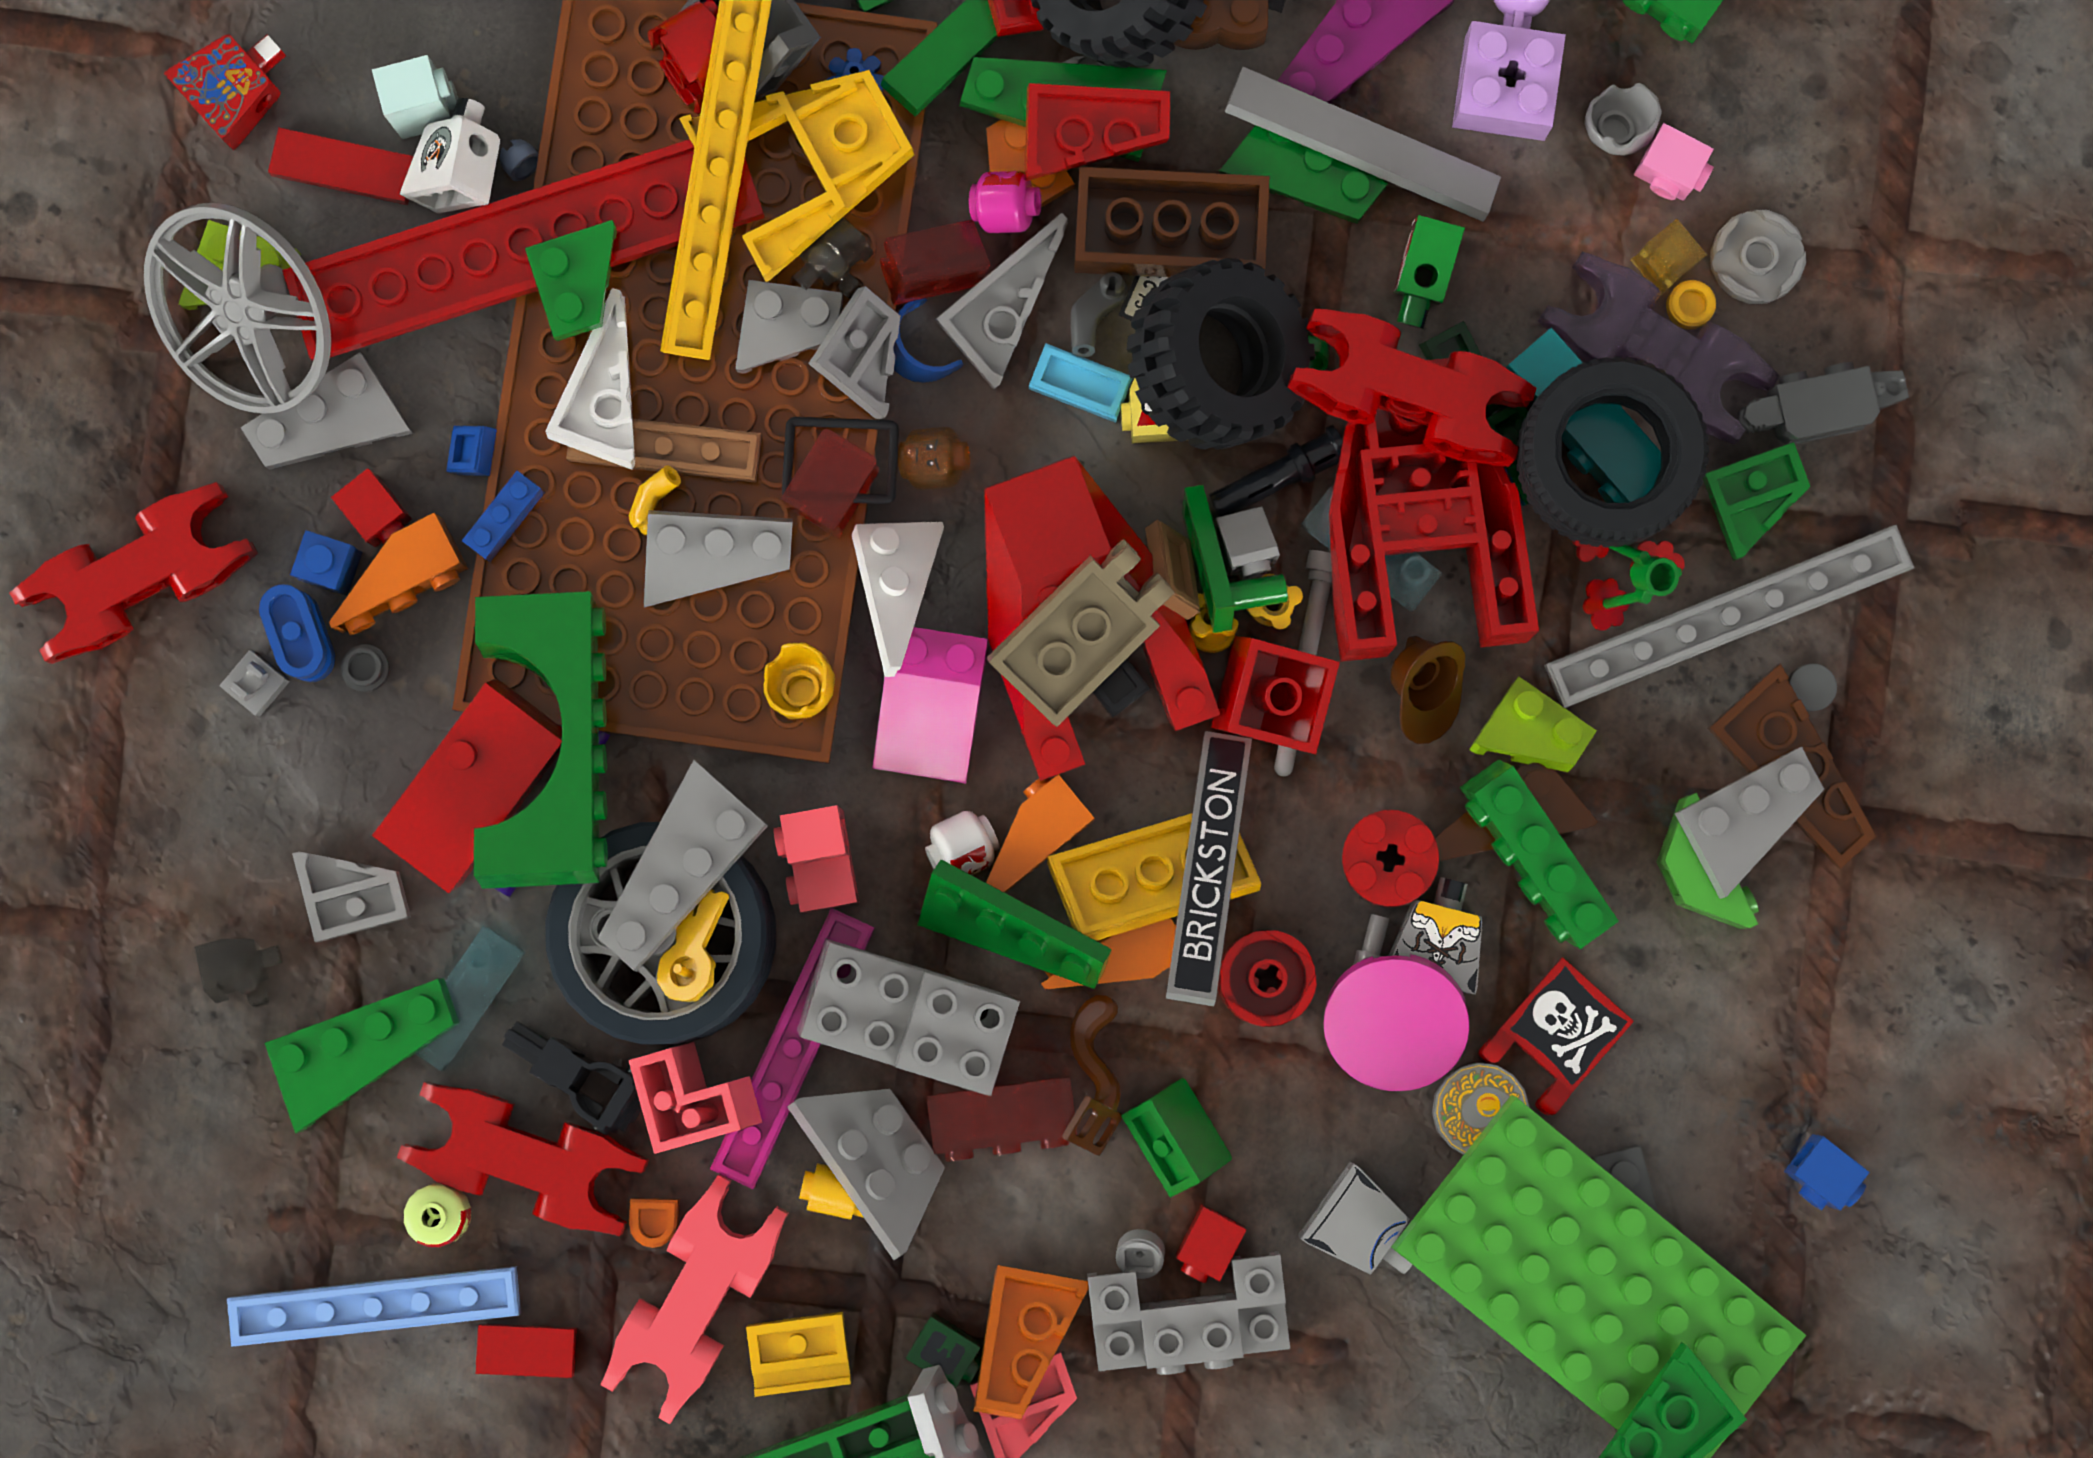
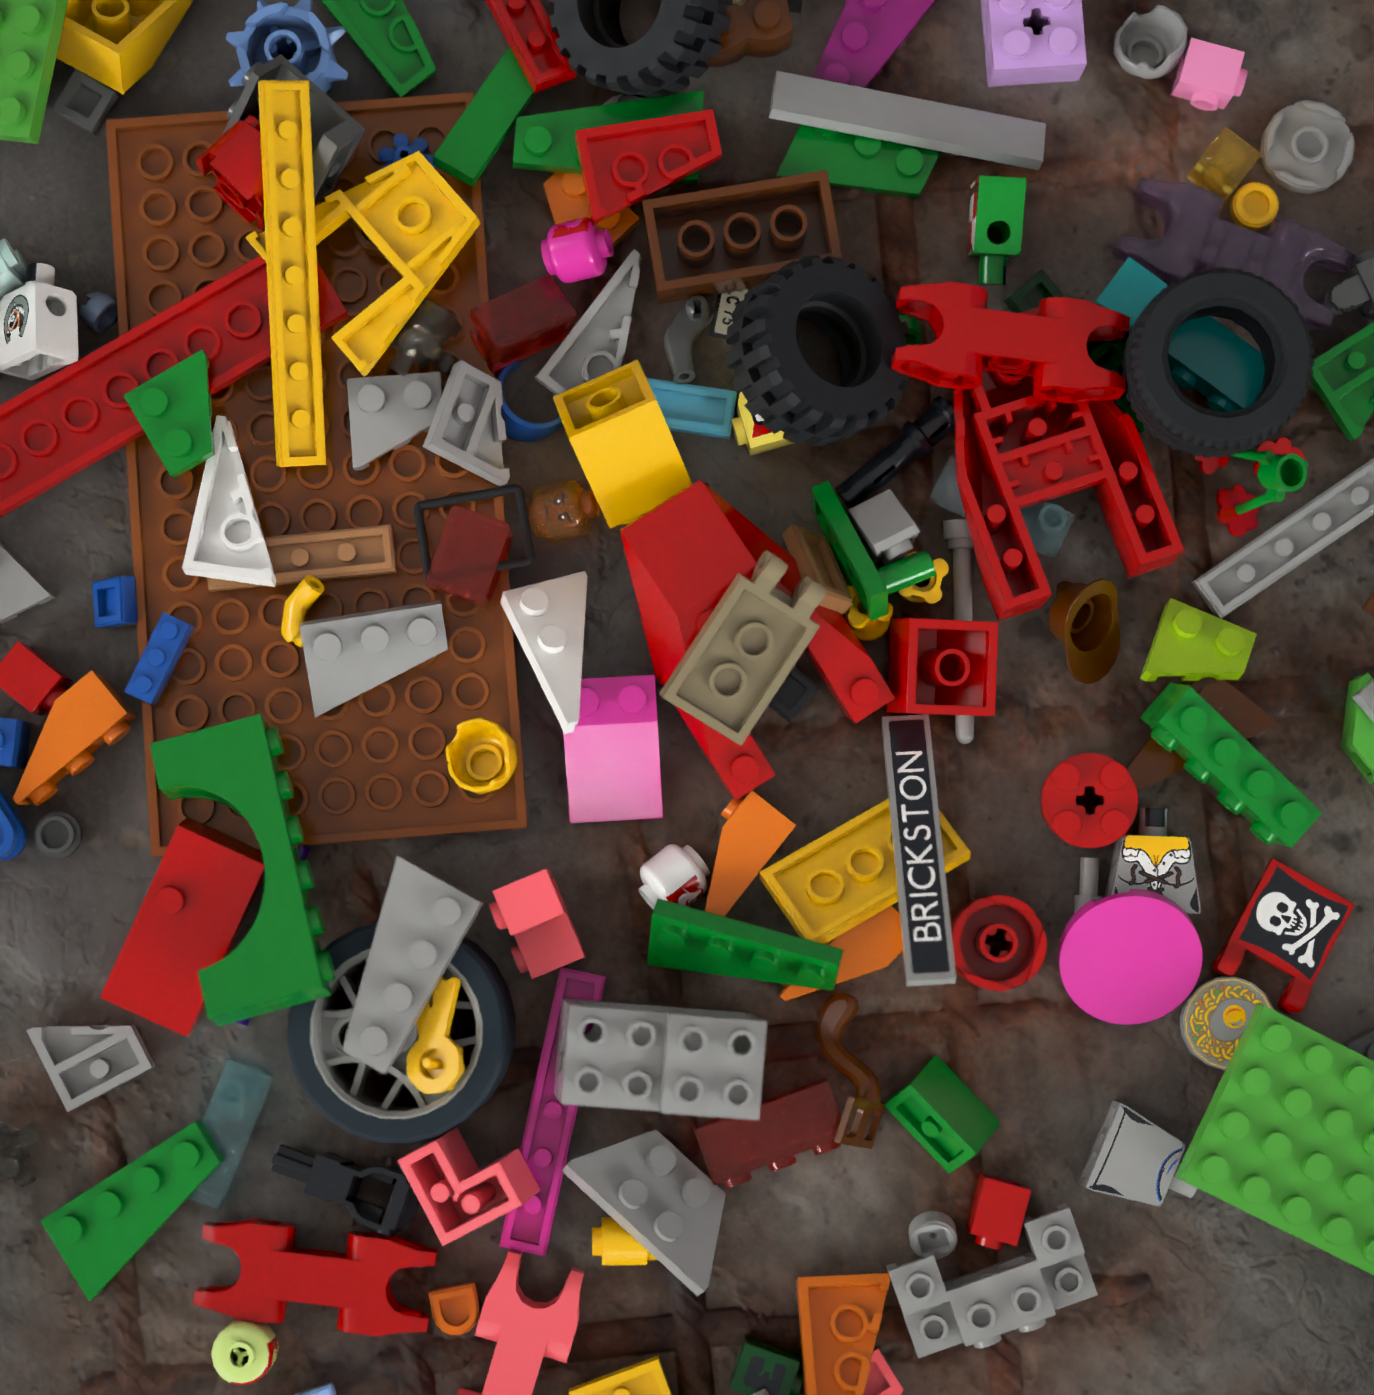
camera: 15 degrees left, 0 degrees up
(1007, 403) = (622, 443): none -> yellow slope

